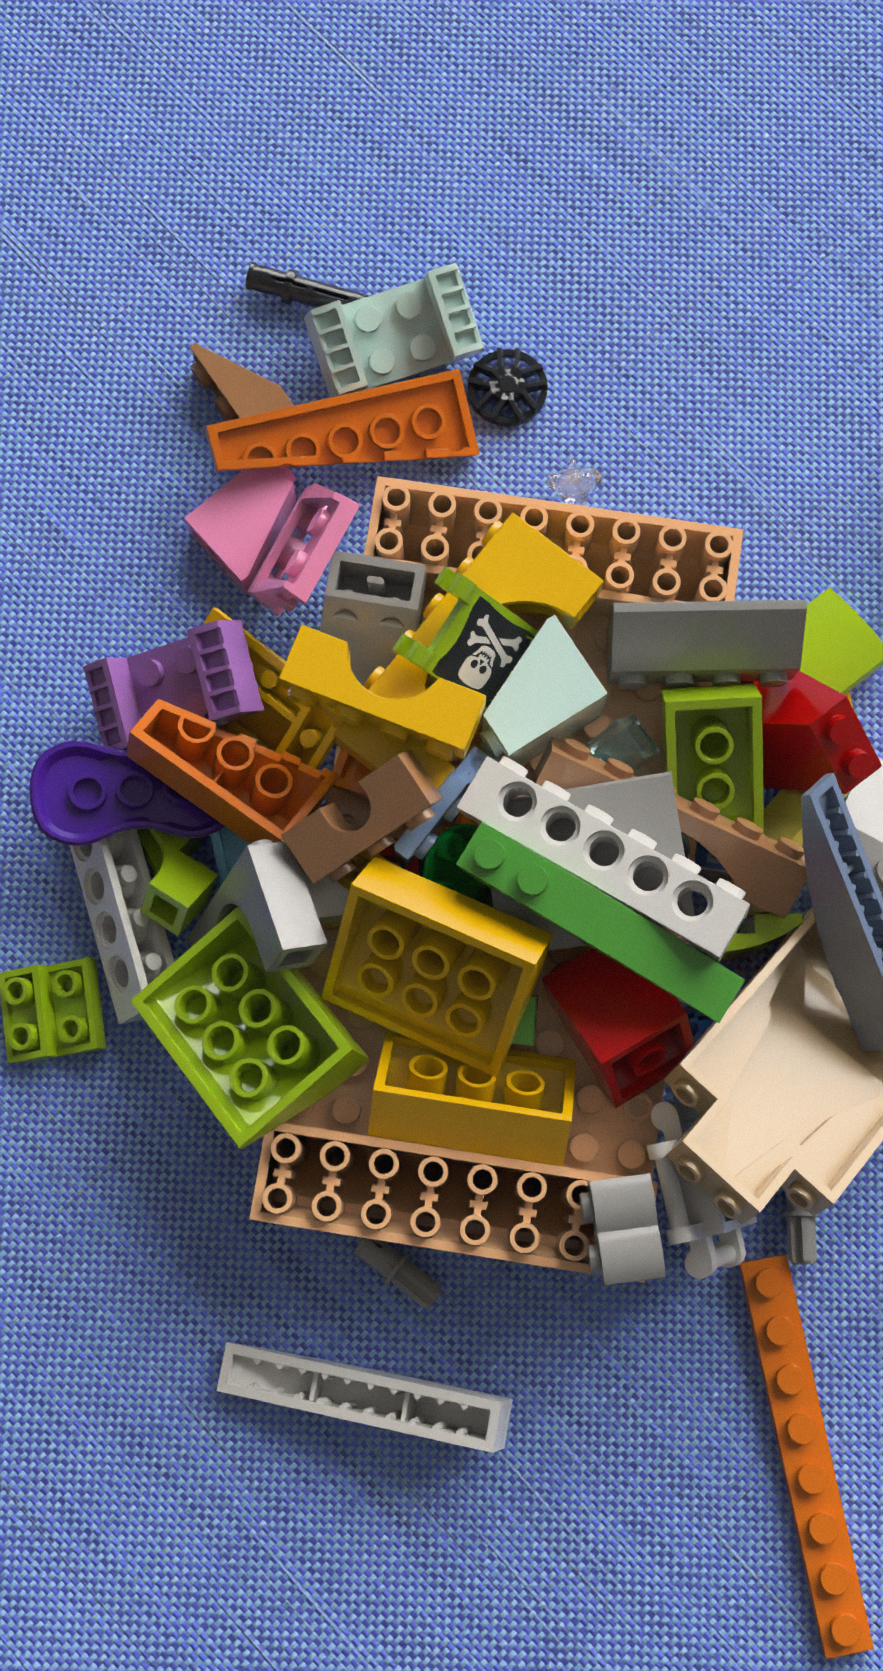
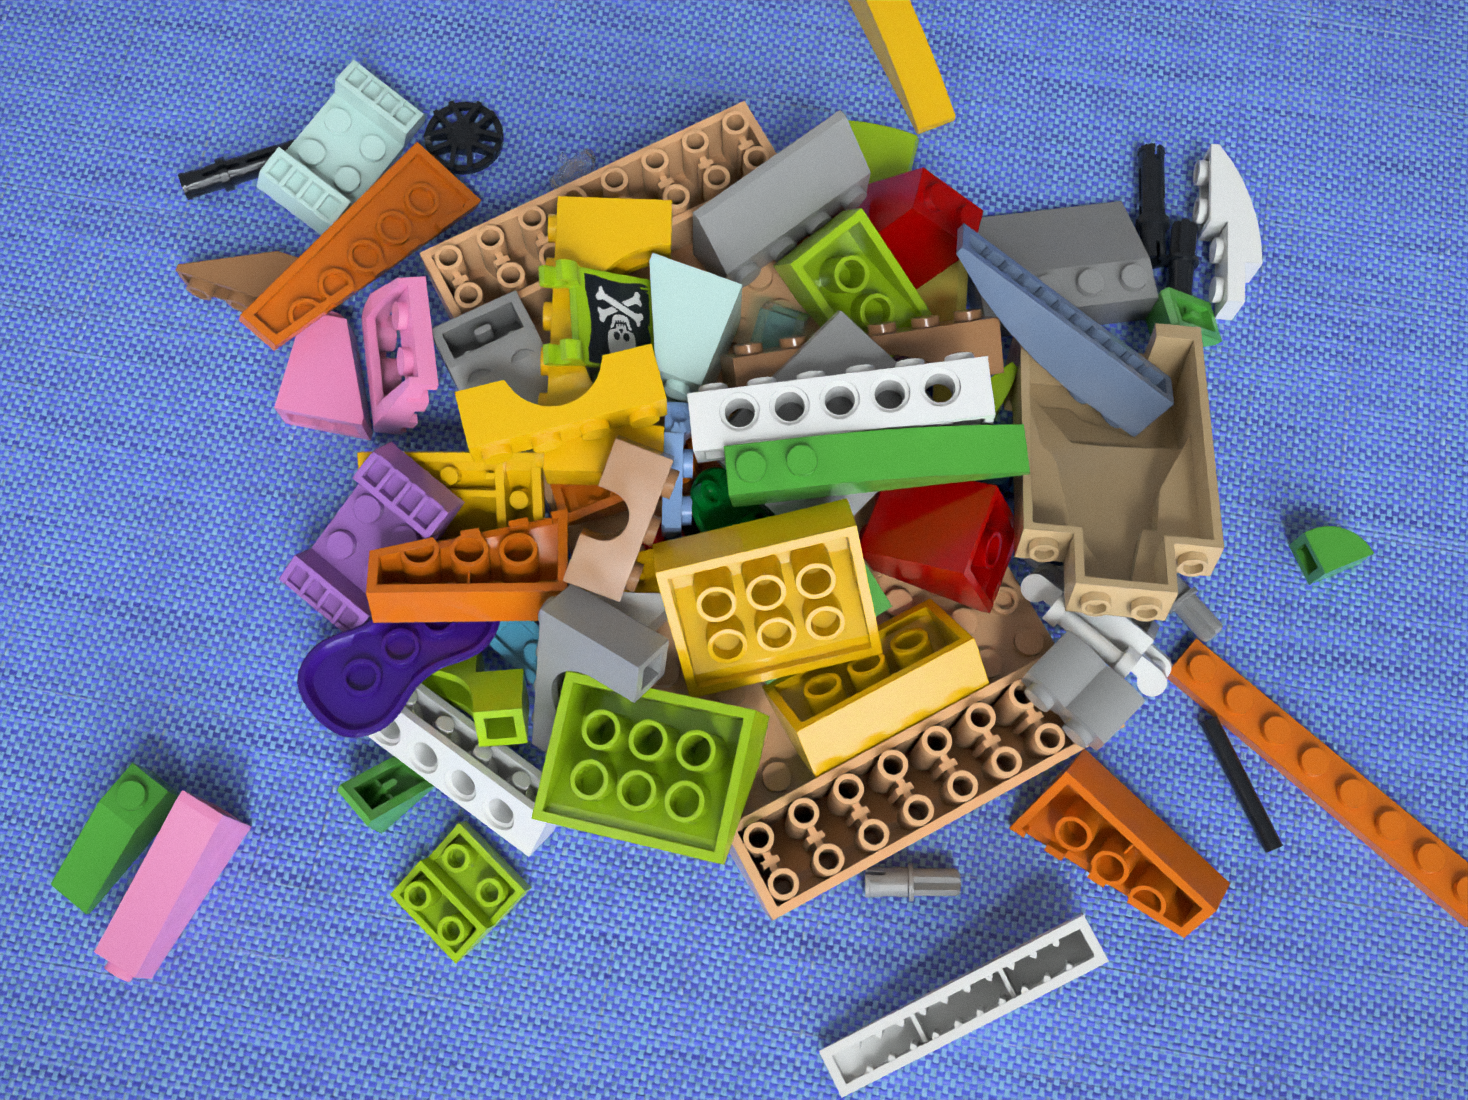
camera: 40 degrees left, 5 degrees down
(46, 891) = (384, 793): none -> bright green slope
(588, 1373) = (1123, 845): none -> orange wedge
(728, 1399) = (1241, 784): none -> black bar

